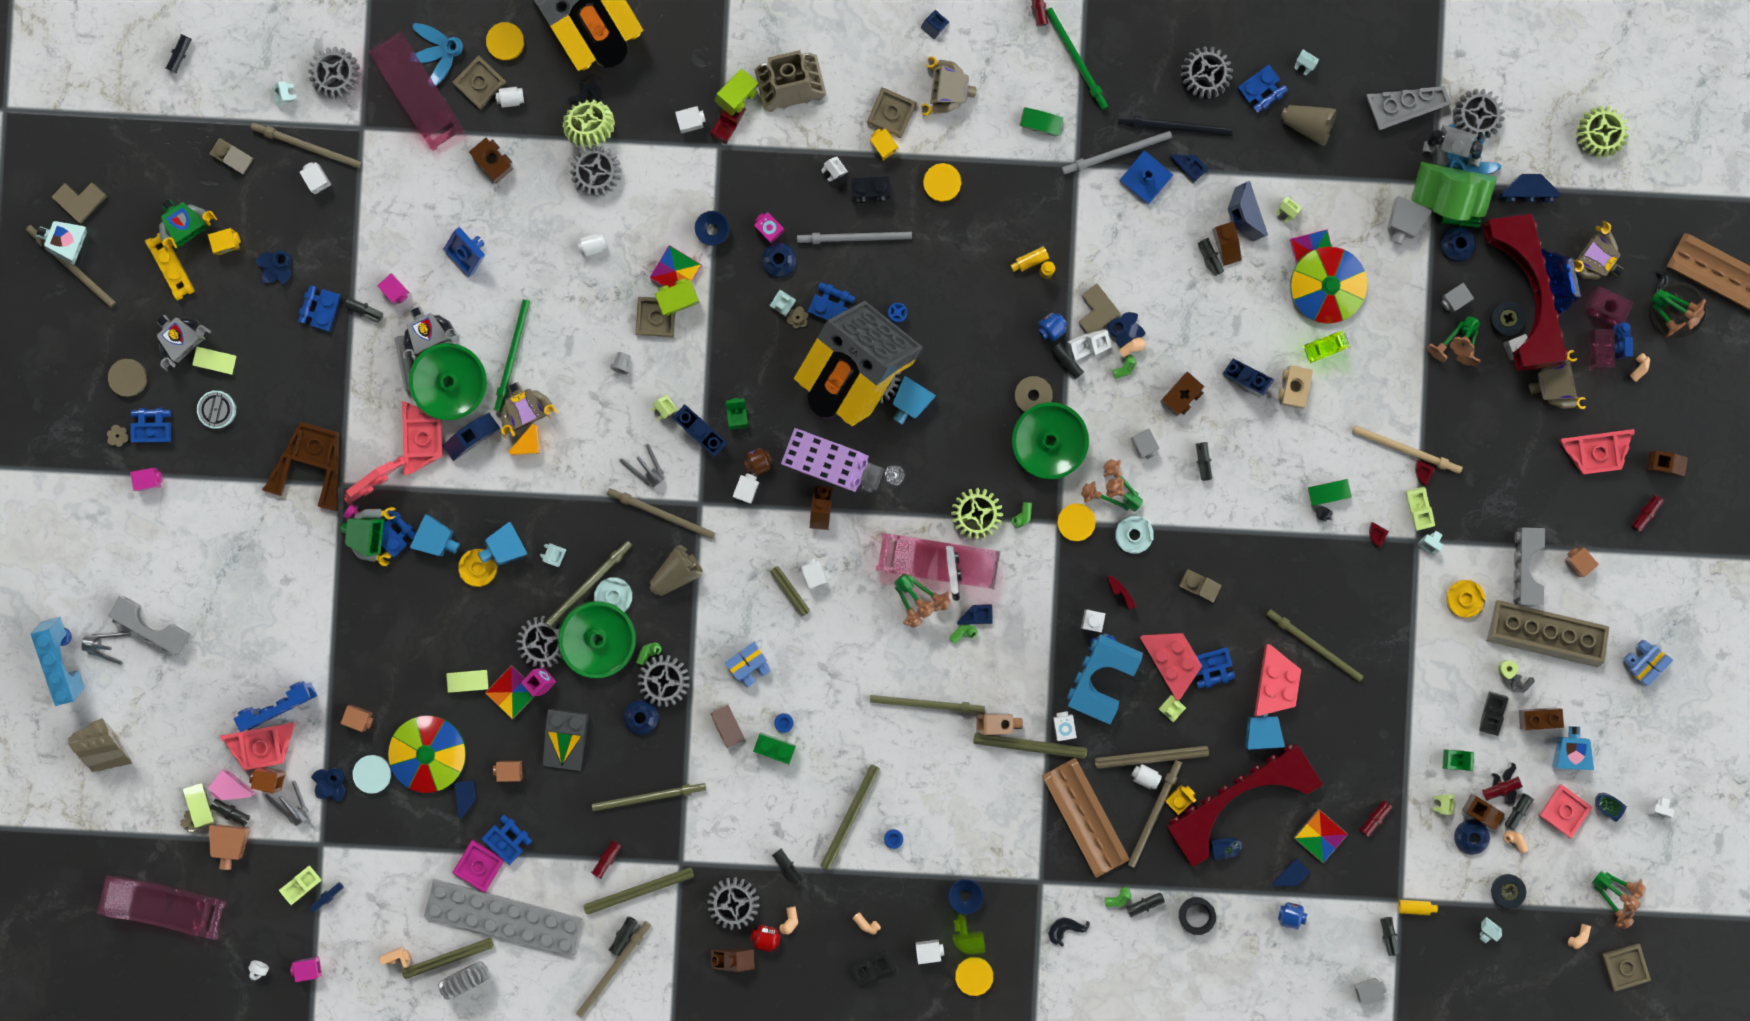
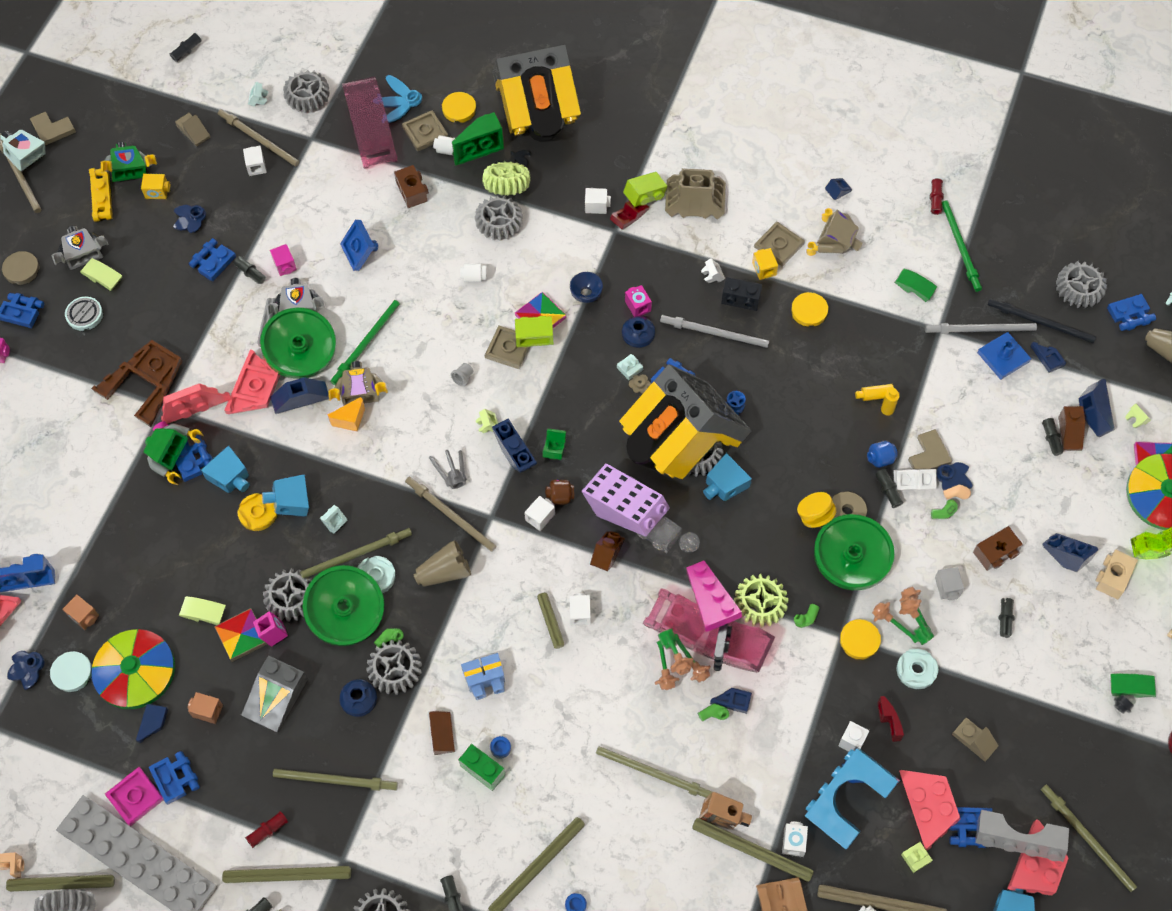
camera: 20 degrees right, 25 degrees down
(545, 81) = (478, 139): none -> green slope
(931, 528) = (713, 600): none -> wing
(1005, 408) = (816, 509): none -> yellow head
(1233, 672) = (1048, 843): none -> light grey arch

